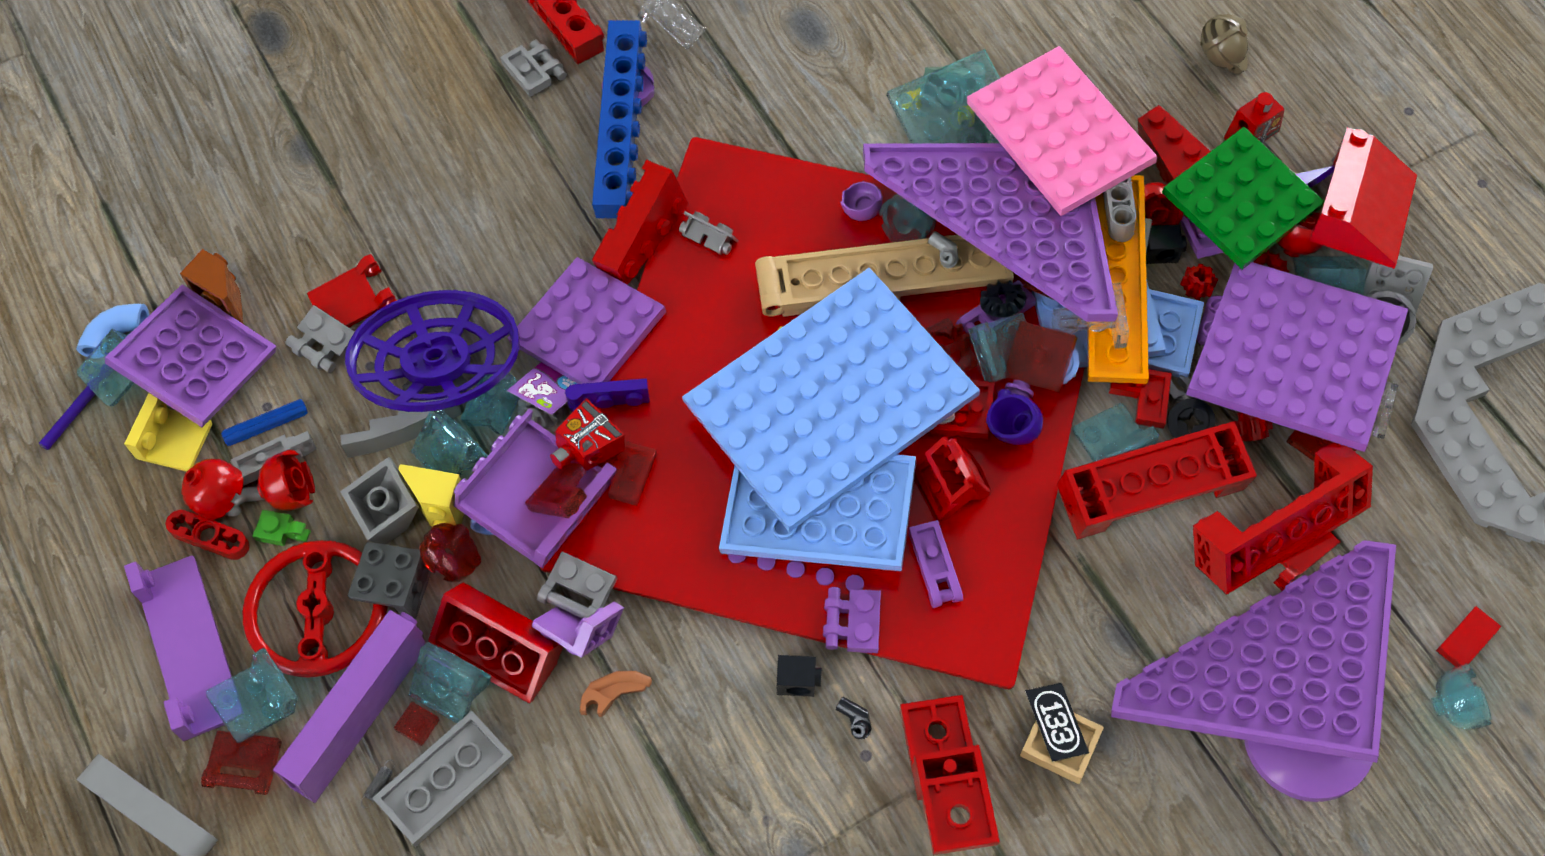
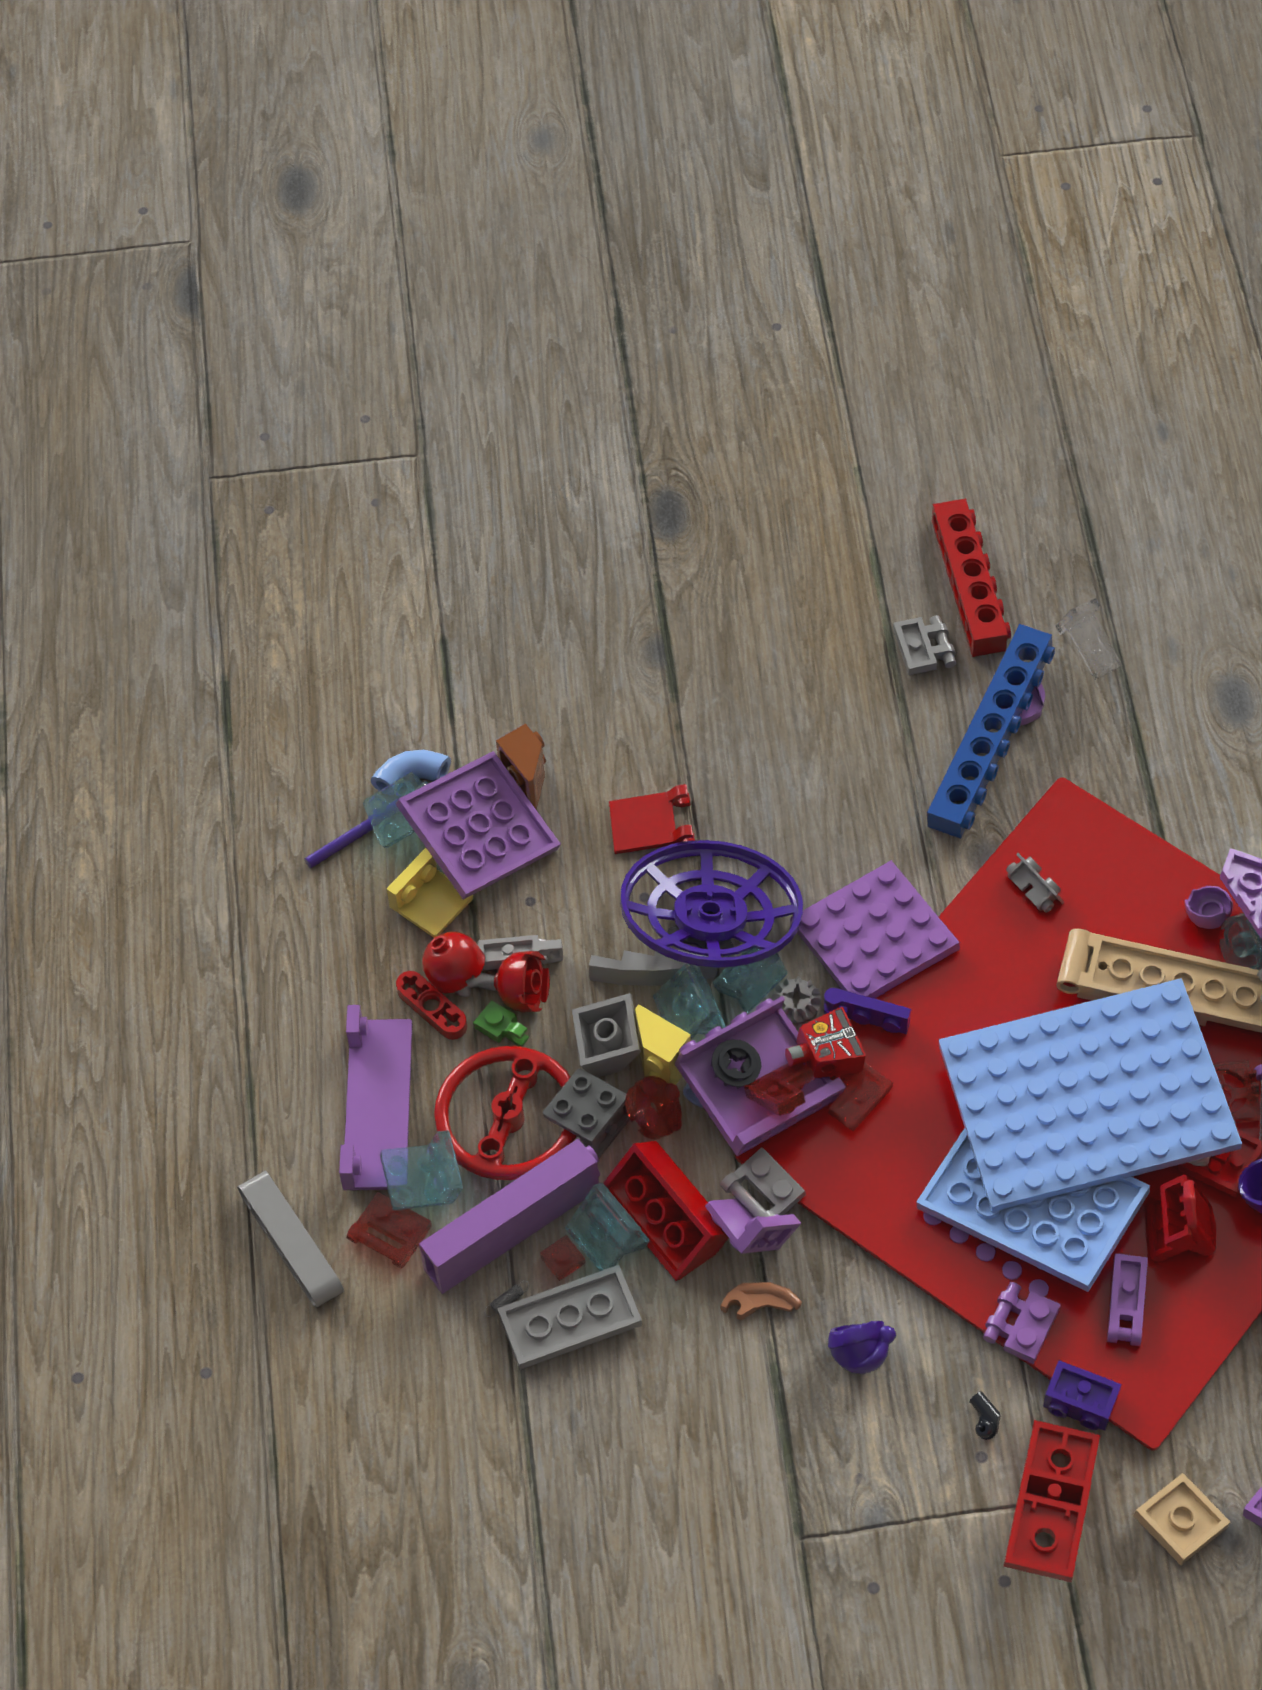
camera: 25 degrees right, 5 degrees down
(264, 422) = (523, 916): blue axle -> none
(326, 331) = (613, 846): light grey plate -> none
(506, 473) = (737, 1051): none -> black gear
(543, 388) = (805, 981): sticker -> none
(642, 223) = (969, 850): red wedge -> none
(721, 698) = (861, 1346): none -> dark purple piece
(797, 675) = (944, 1354): black brick -> none
(932, 666) = (1081, 1396): none -> dark purple bracket
(1057, 722) = (1184, 1497): black sticker -> none

